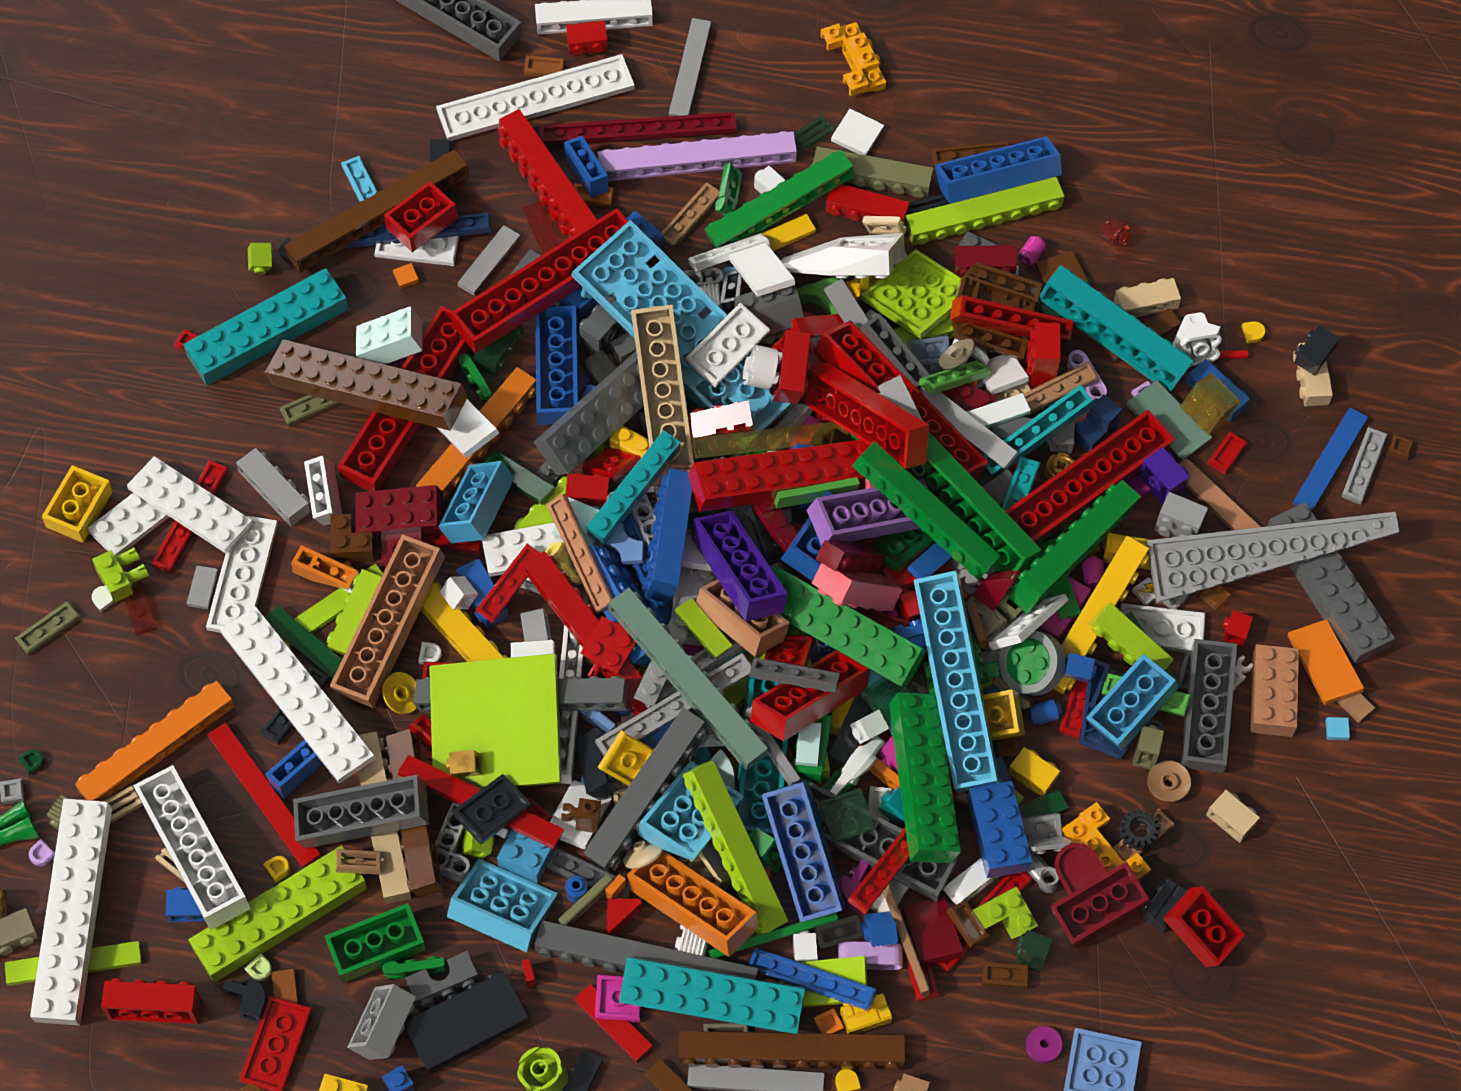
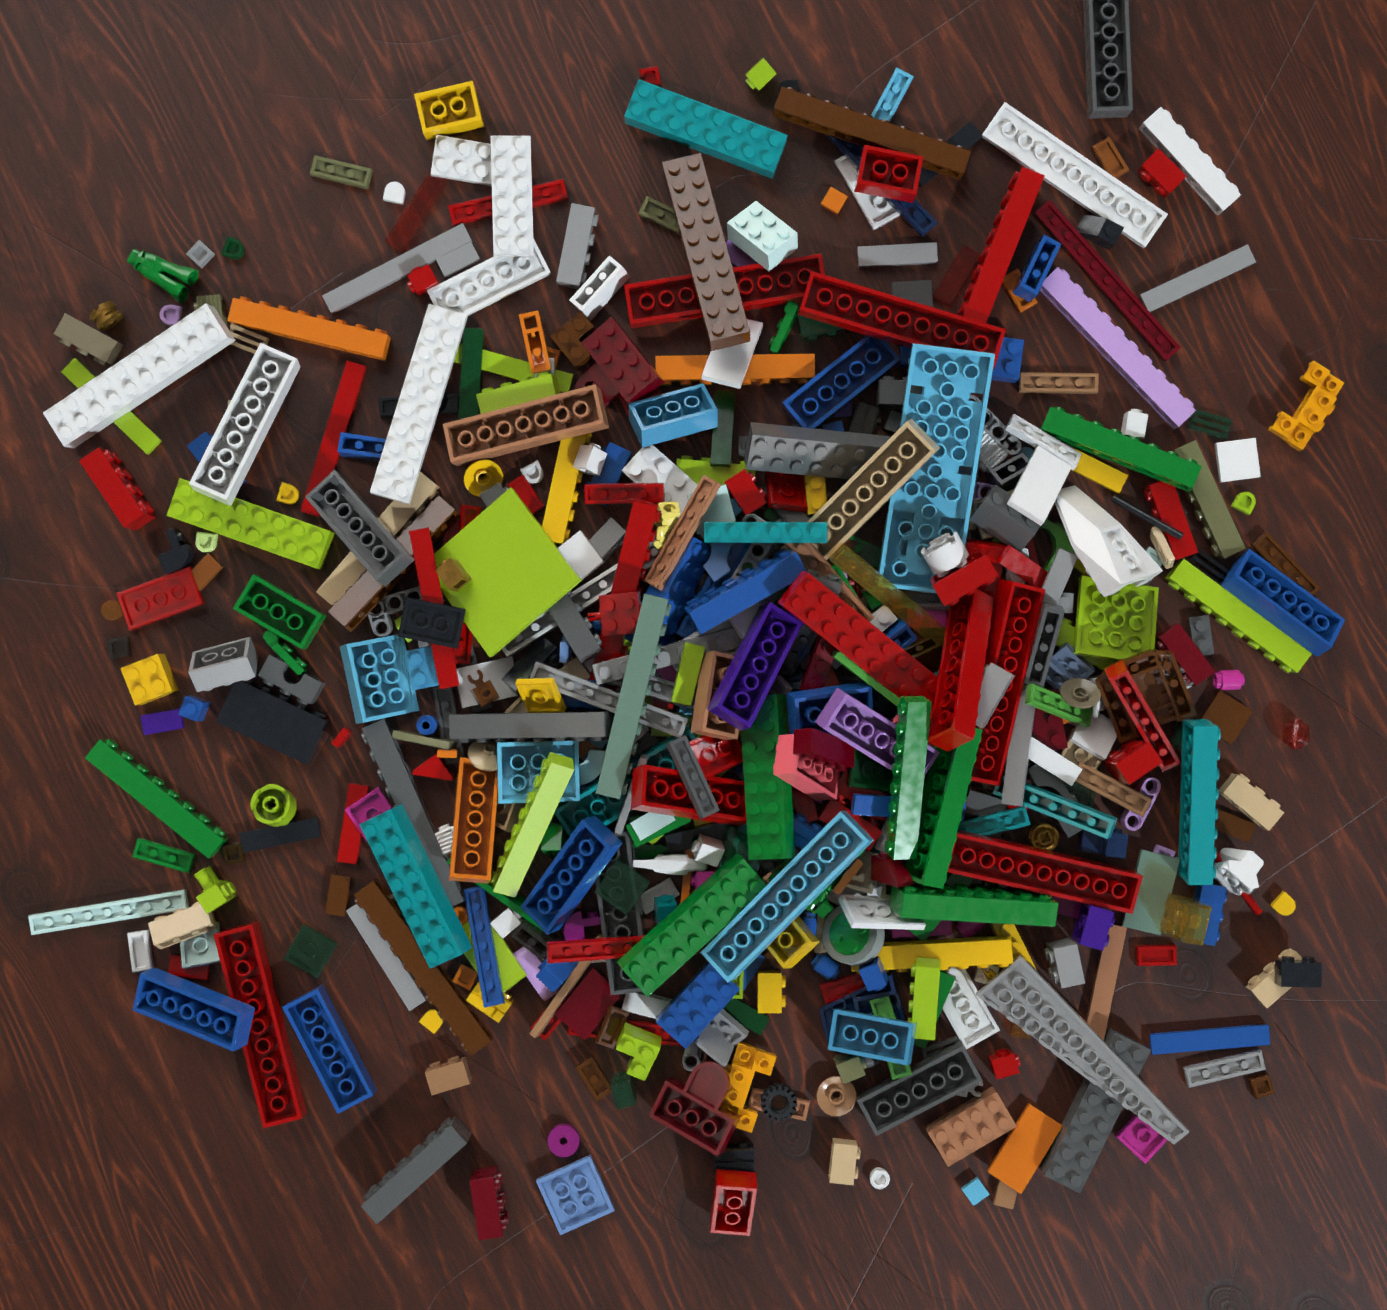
camera: 55 degrees right, 25 degrees up
(111, 572) = (410, 188): lime brick -> none
(166, 642) = (396, 269): none -> light grey tile
(194, 624) = (421, 280): none -> red brick
(358, 865) = (322, 564): medium nougat tile -> none
(595, 106) = (1100, 230): none -> black slope
(721, 420) = (876, 554): wedge -> none
(727, 344) = (947, 511): white tile -> none
(729, 189) = (1102, 398): green hinge -> none
(851, 219) = (1147, 517): none -> black bar
(896, 149) = (1244, 502): none -> lime tile
(1270, 799) = (879, 1178): none -> white tile
(1380, 564) = (1140, 1138): none -> dark pink tile

